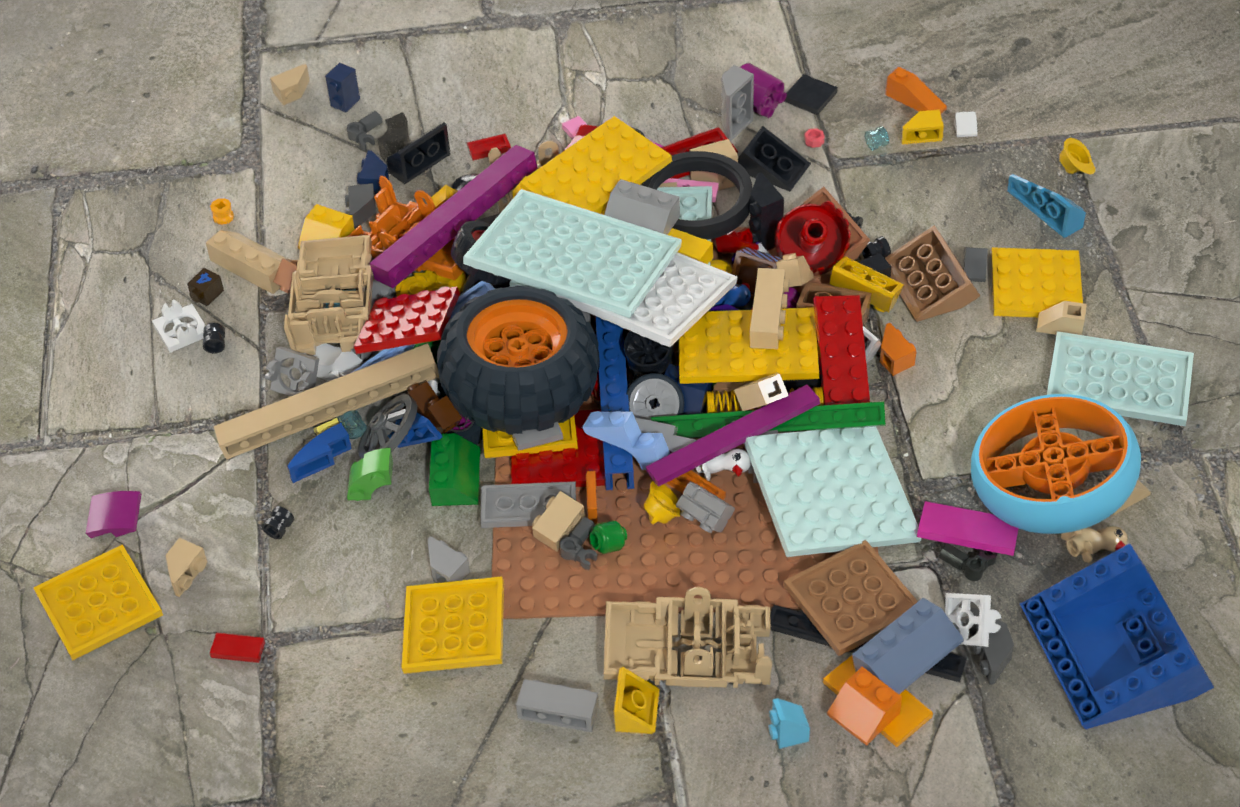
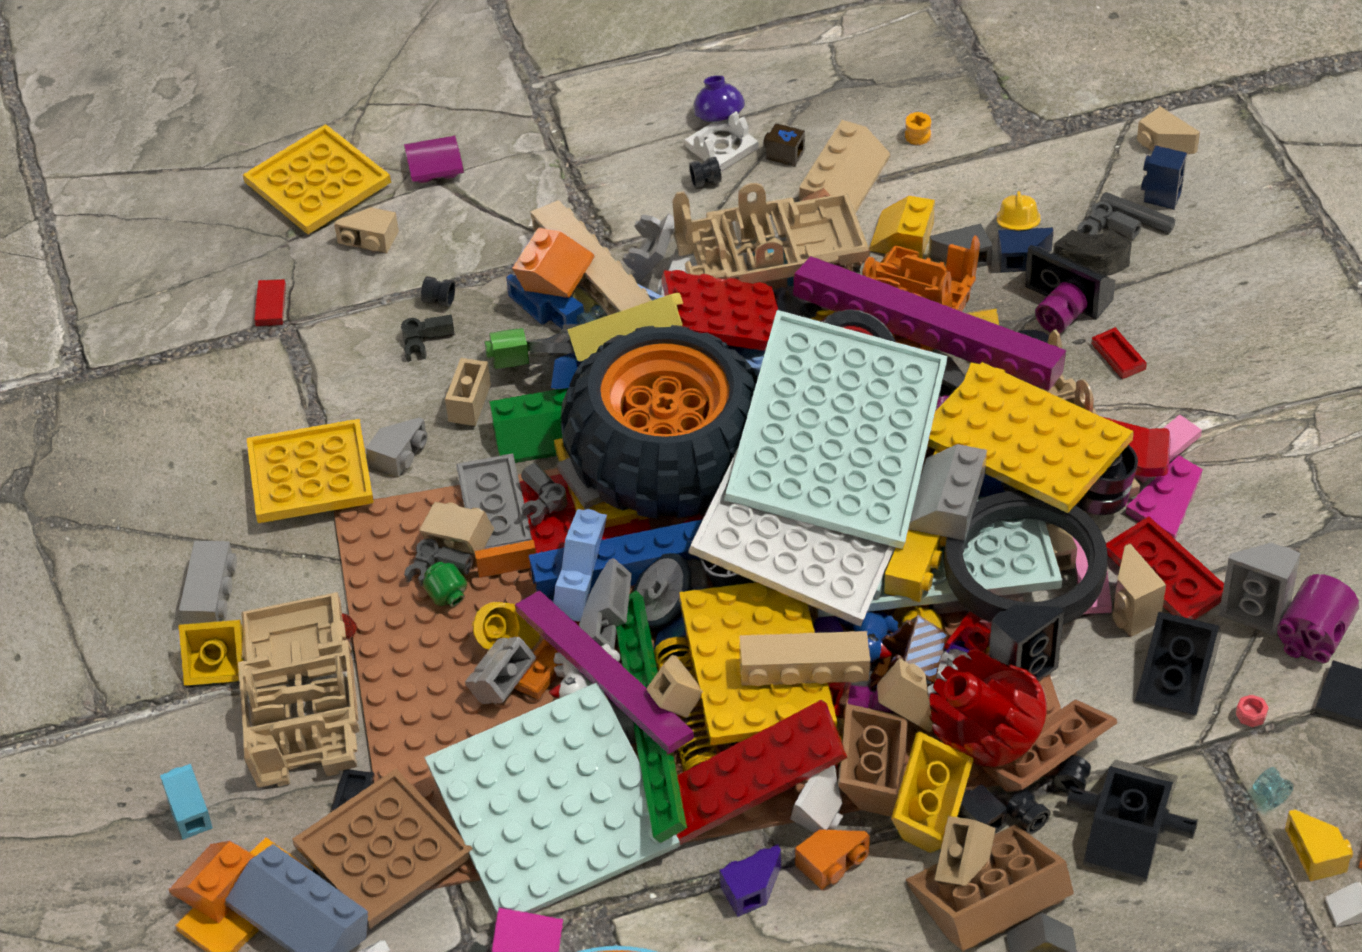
camera: 80 degrees right, 0 degrees up
(140, 318) = (717, 100): none -> dark purple piece
(303, 425) = (552, 263): none -> orange slope
(315, 544) = (414, 331): none -> pearl dark grey bar
(343, 166) = (1018, 213): none -> yellow piece
(367, 108) = (1143, 214): none -> dark grey axle
(406, 507) = (468, 391): none -> tan brick
(414, 368) = (591, 335): none -> light yellow panel
(442, 162) = (1061, 307): none -> magenta wheel
(543, 457) = (551, 495): none -> dark grey bar
(890, 201) = (1130, 819): none -> black slope
(909, 392) = (751, 880): none -> dark purple slope
(913, 277) = (963, 850): none -> tan slope

